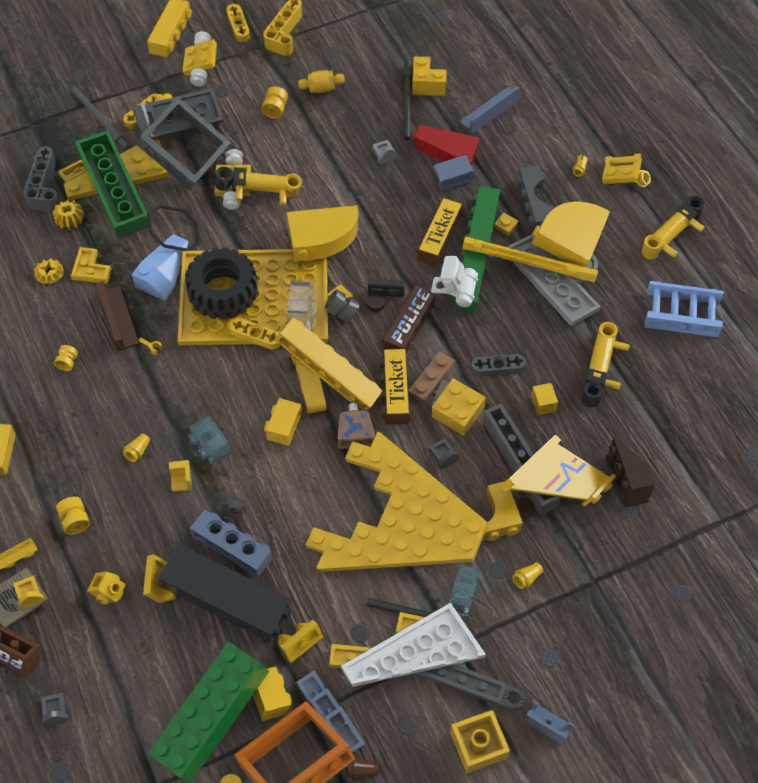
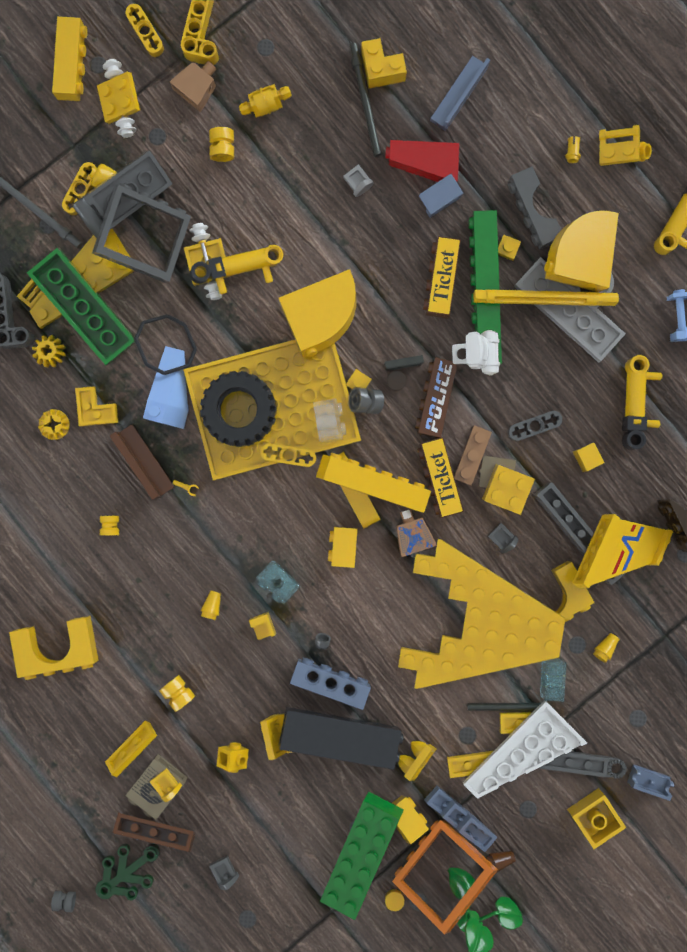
camera: 15 degrees left, 30 degrees up
(266, 61) = (195, 84): none -> medium nougat torso

